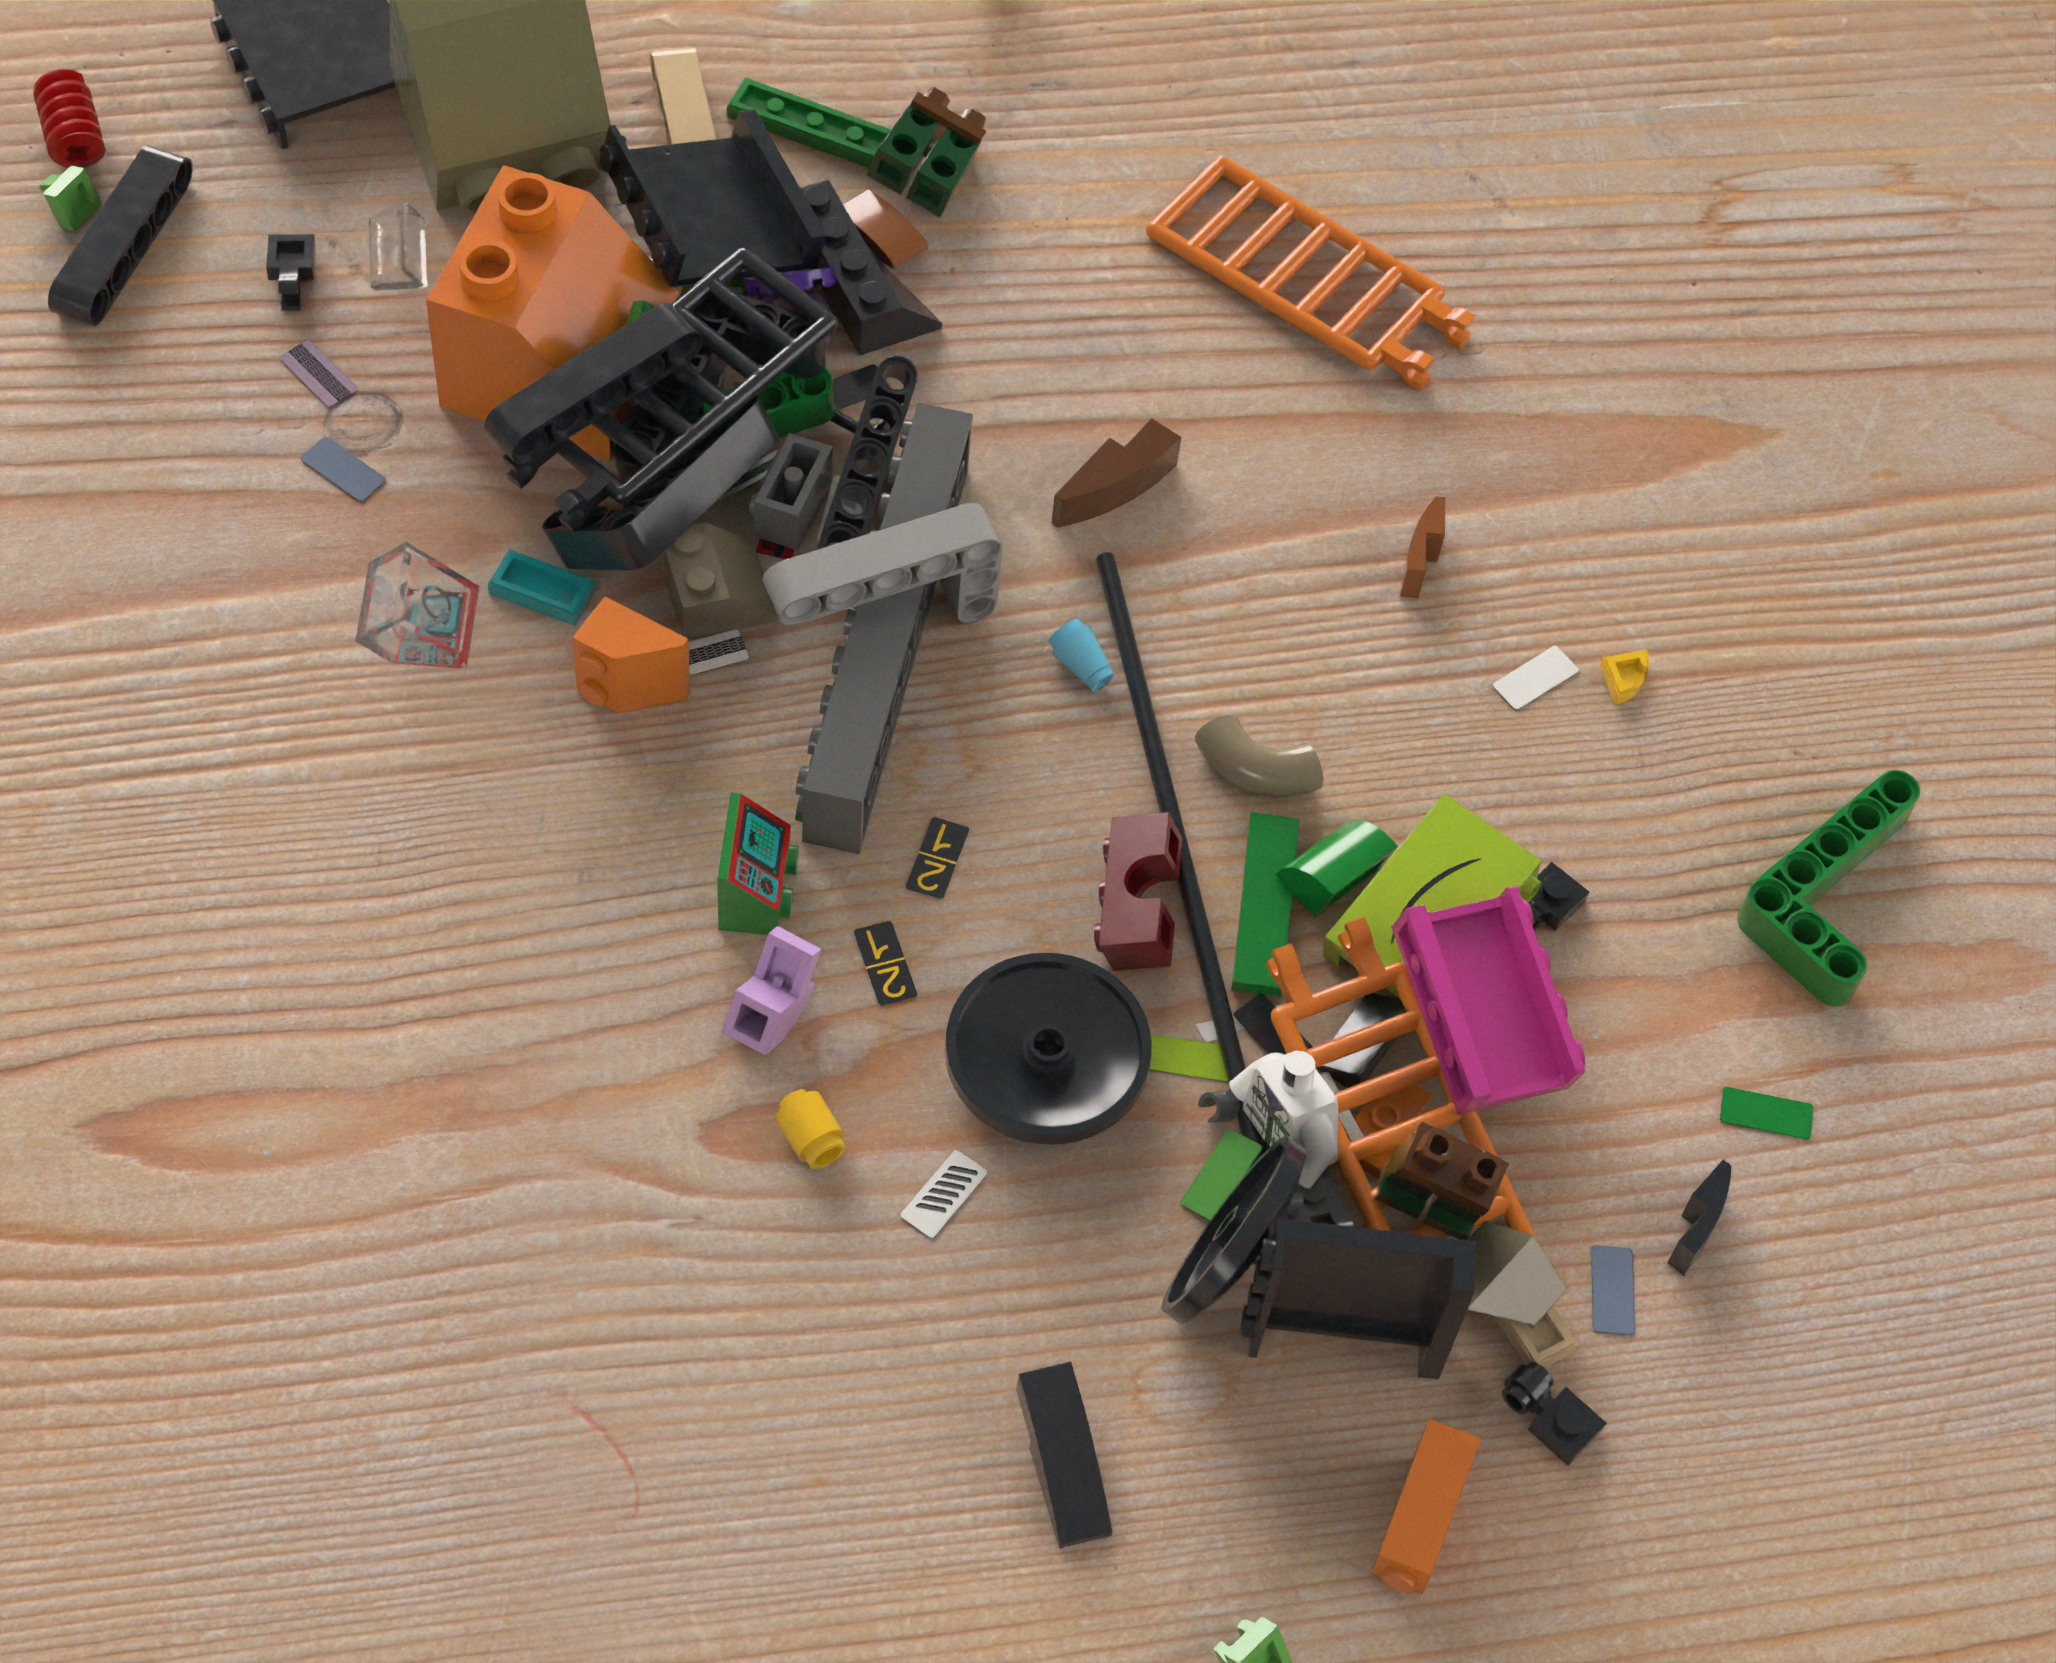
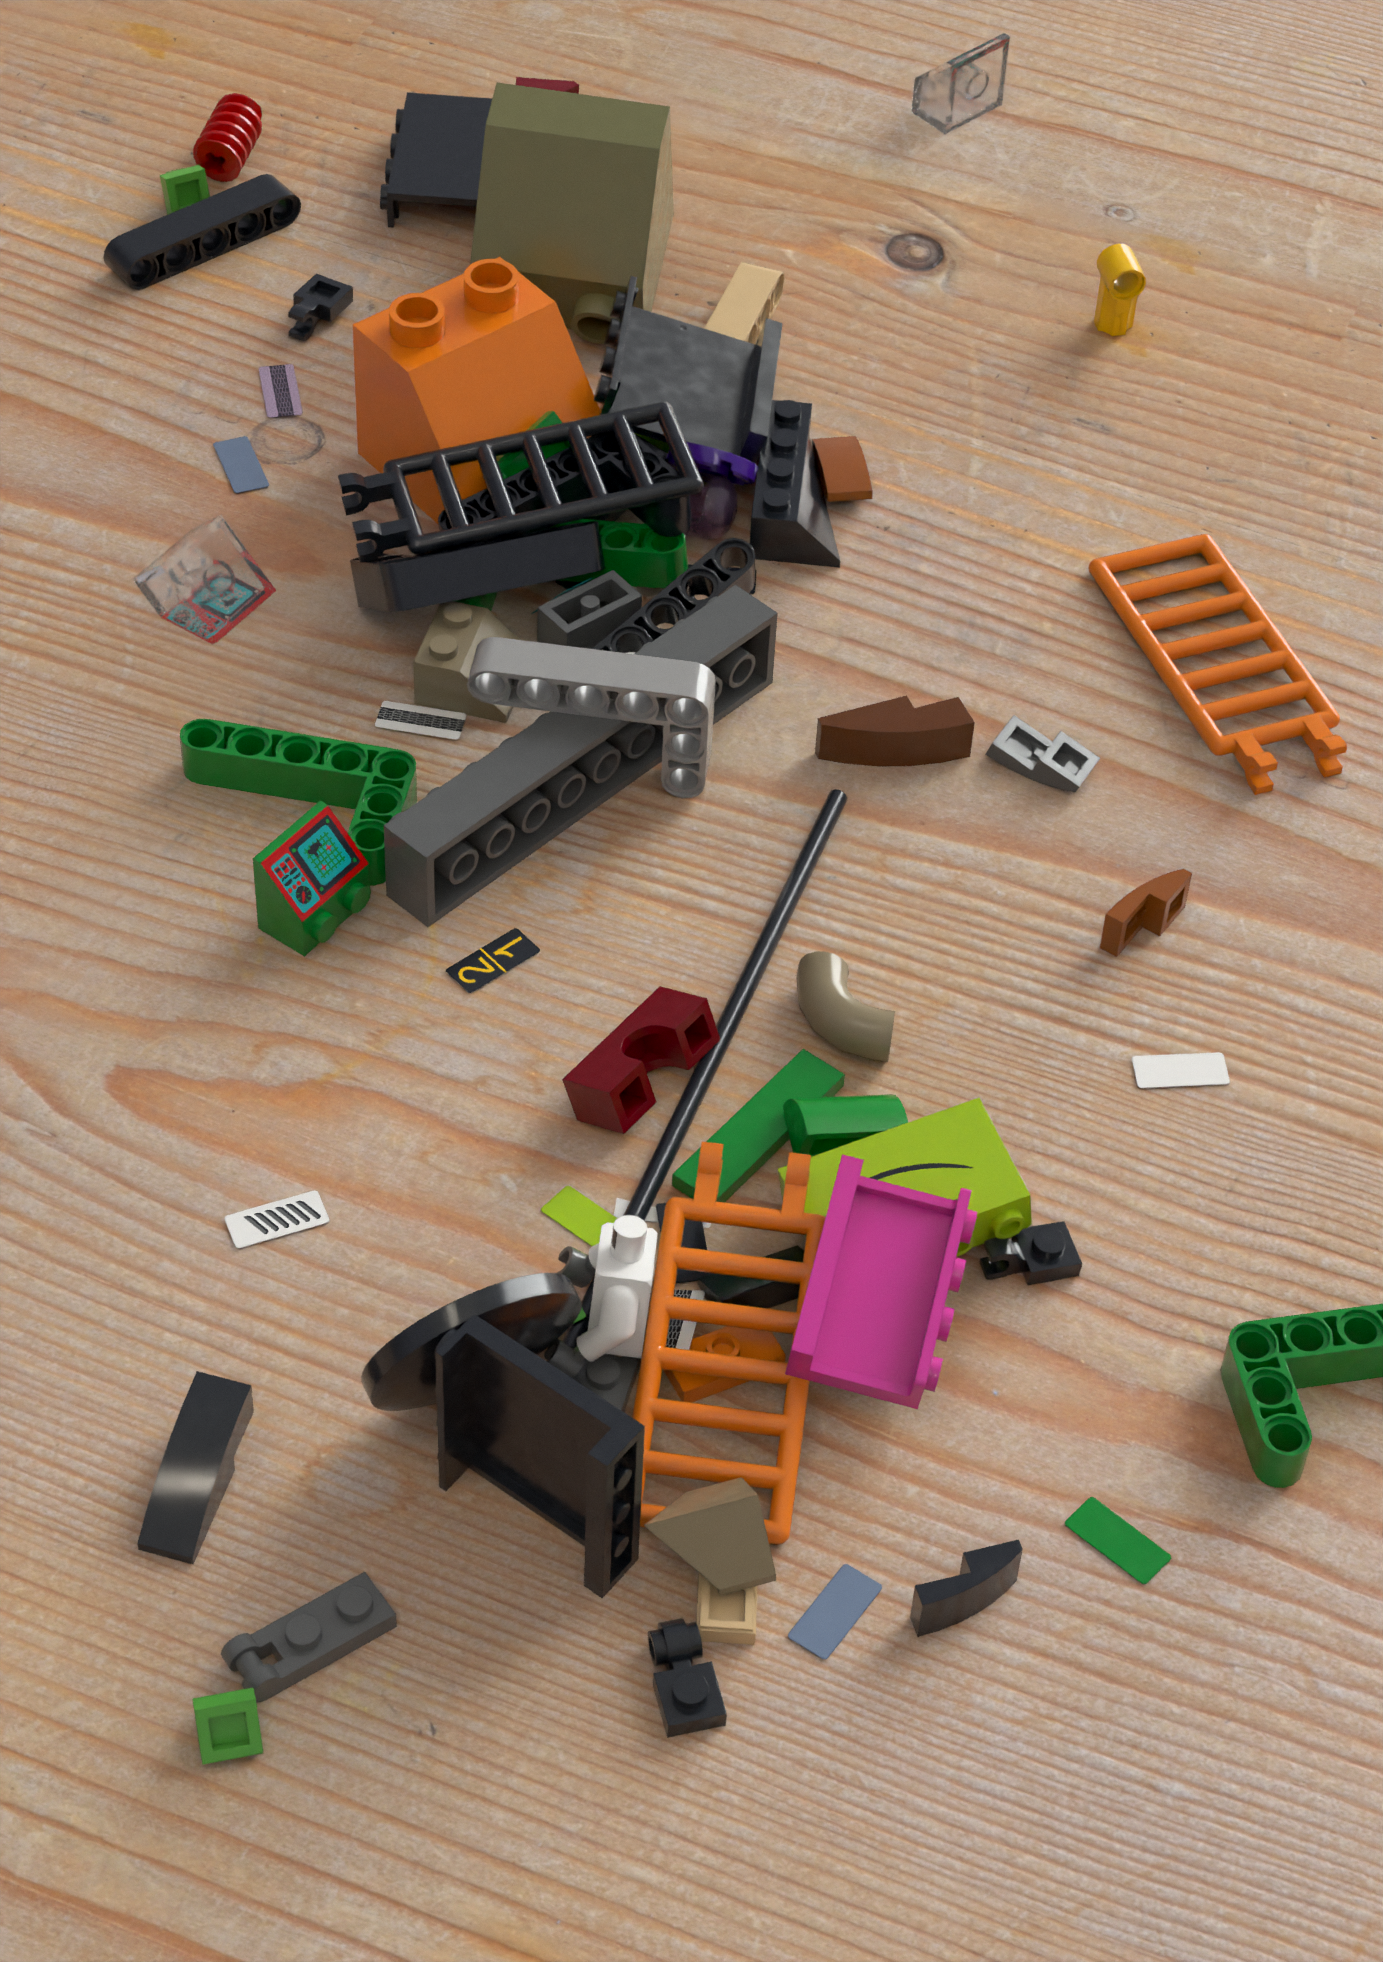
camera: 35 degrees right, 10 degrees down
(541, 587) = (326, 612): teal tile -> none
(593, 383) = (450, 446): black beam -> none
(629, 660) = (335, 682): orange slope -> none
(669, 763) = (307, 769): none -> green beam
(775, 995) = (249, 994): lavender brick -> none
(809, 122) = (851, 374): green tile -> none
(810, 1128) = (197, 1106): yellow brick -> none
(885, 963) = (378, 1019): black sticker -> none
(939, 136) = (929, 422): dark green hips -> none
(1048, 1048) = (451, 1140): black dish -> none
(1081, 653) = (749, 855): medium azure cone -> none
(1250, 439) = (1052, 763): none -> slope
(1255, 1542) = (310, 1637): none -> dark grey plate
(1425, 1507) = (481, 1681): orange slope -> none
(1453, 1170) = (708, 1407): reddish brown hips -> none
(1624, 674) = (1273, 1105): yellow tile -> none

